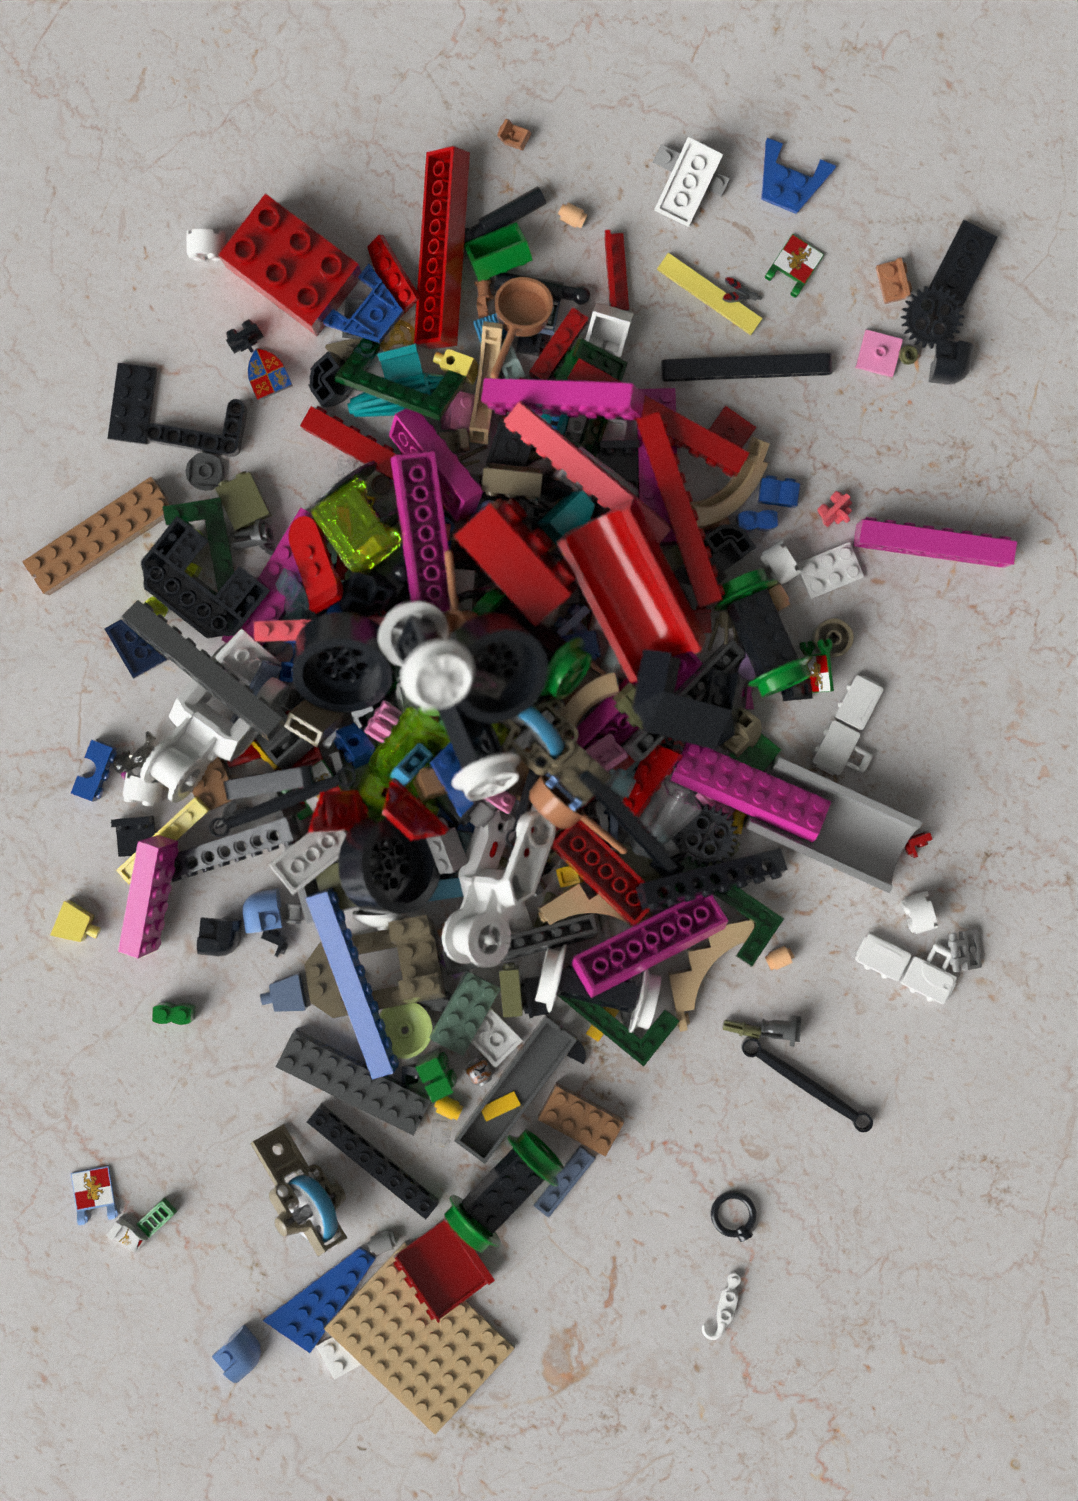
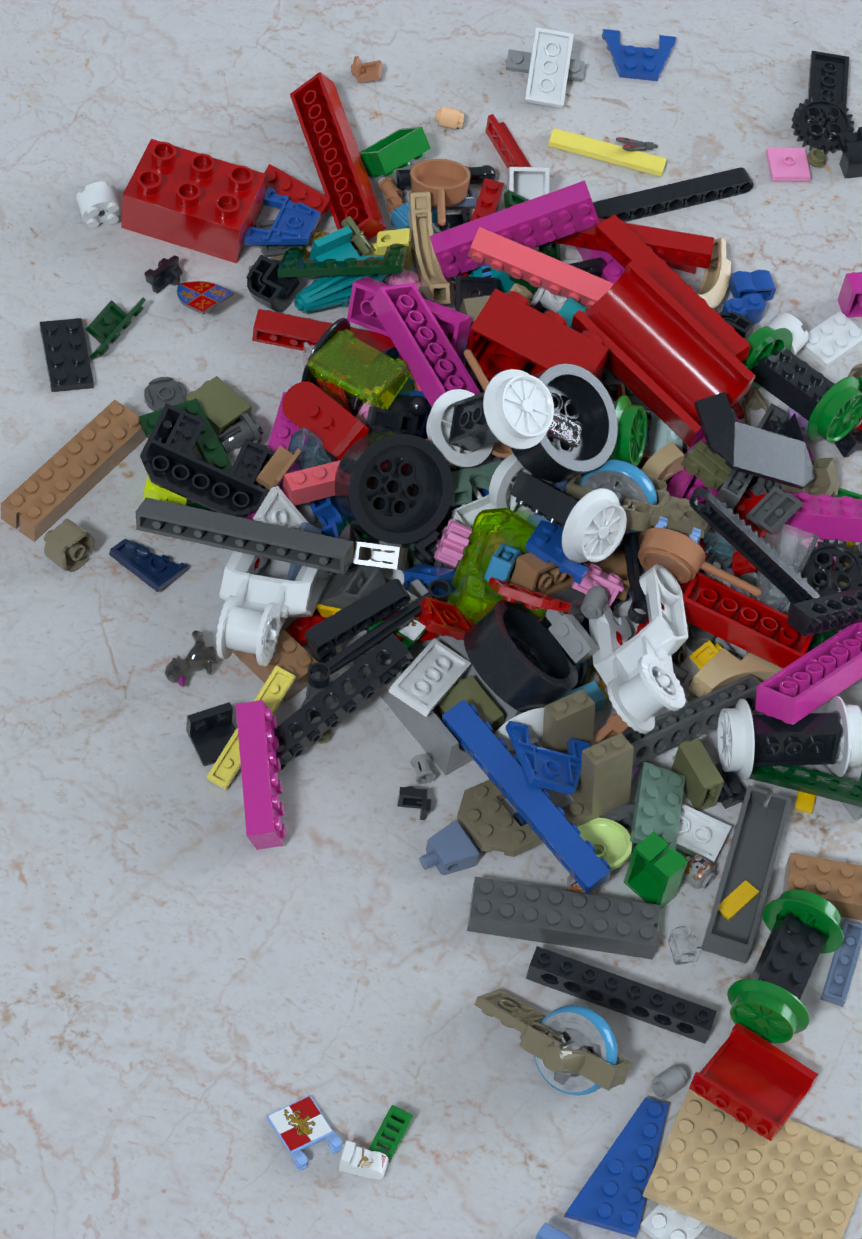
camera: 30 degrees left, 35 degrees down
(68, 617) = (68, 545): none -> dark tan brick
(74, 923) = (178, 841): light yellow torso -> none
(102, 756) = (145, 701): blue arch -> none
(139, 790) = (210, 682): white brick -> none
(169, 1012) = (325, 902): green brick -> none
(179, 381) = (108, 323): none -> dark green bracket
(203, 437) = (146, 367): black beam -> none
(218, 936) = (349, 810): black brick -> none
(257, 604) = (277, 466): none -> medium nougat panel
(262, 911) = (389, 772): medium blue brick -> none
(376, 972) = (544, 766): none -> blue wing
(410, 1074) = (628, 885): black bracket -> none
(425, 349) = (357, 236): none -> olive axle
(448, 1108) = (680, 916): yellow brick -> none
(506, 214) = (394, 121): black piece -> none
(577, 1052) = (795, 827): black tile -> none
(668, 780) = (773, 510): none -> dark grey slope
(797, 262) = (676, 113): flag -> none
(838, 512) = (815, 288): coral hips -> none
(894, 281) = (773, 108): nougat bracket -> none

